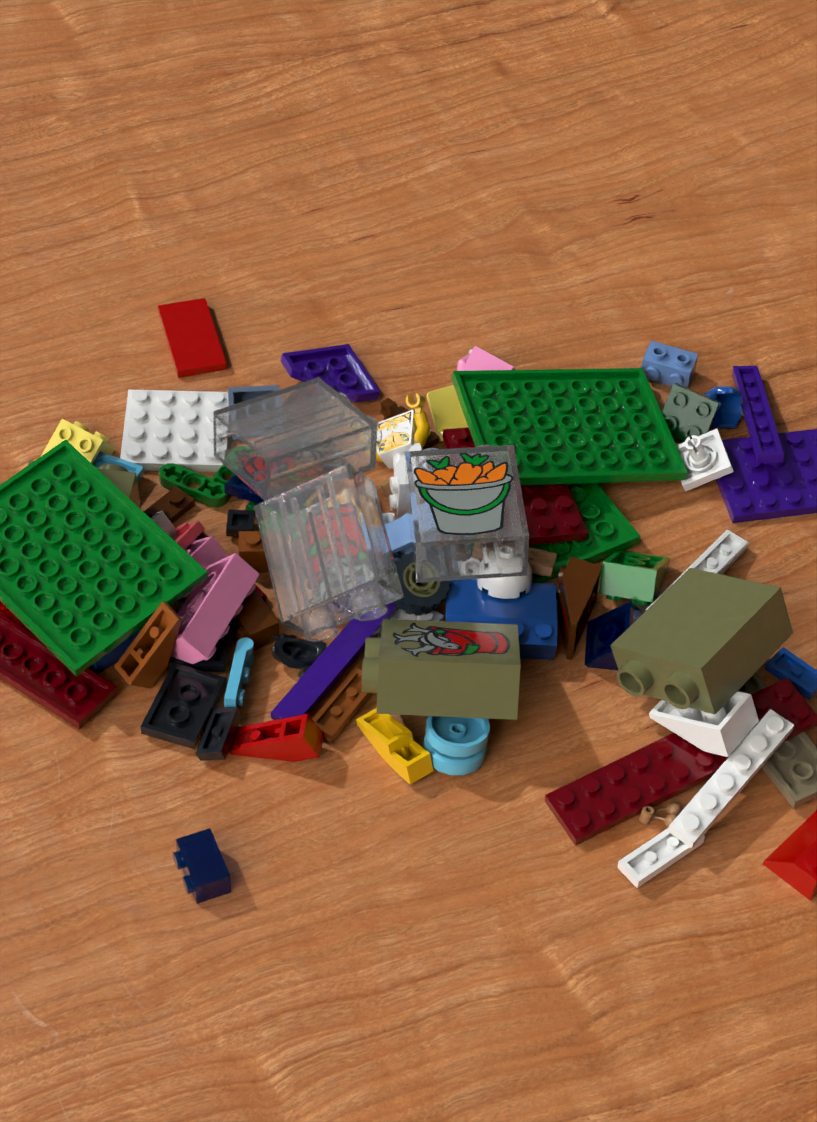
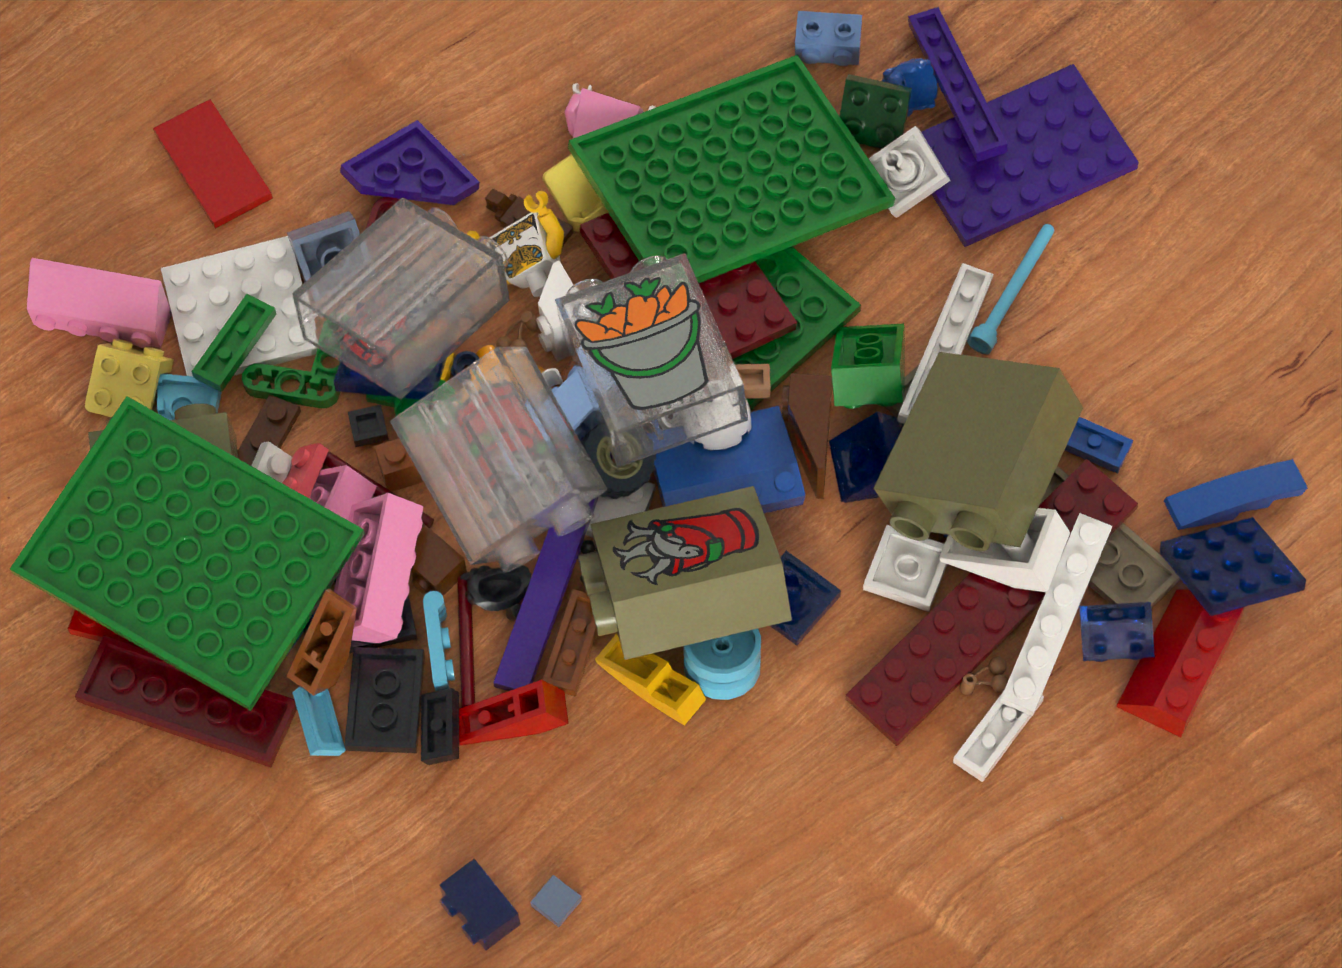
camera: 10 degrees left, 15 degrees up
(73, 394) = (97, 303): none -> bright pink slope
(127, 707) = (319, 723): none -> medium azure tile
(161, 443) = (234, 342): none -> green plate
(260, 686) = (466, 646): none -> dark red bar
(265, 881) = (556, 901): none -> sand blue tile
(534, 721) = (808, 598): none -> clear blue plate
(621, 721) = (906, 570): none -> white plate
(768, 551) = (984, 337): none -> medium azure piece
(777, 804) = (1117, 631): none -> clear blue brick

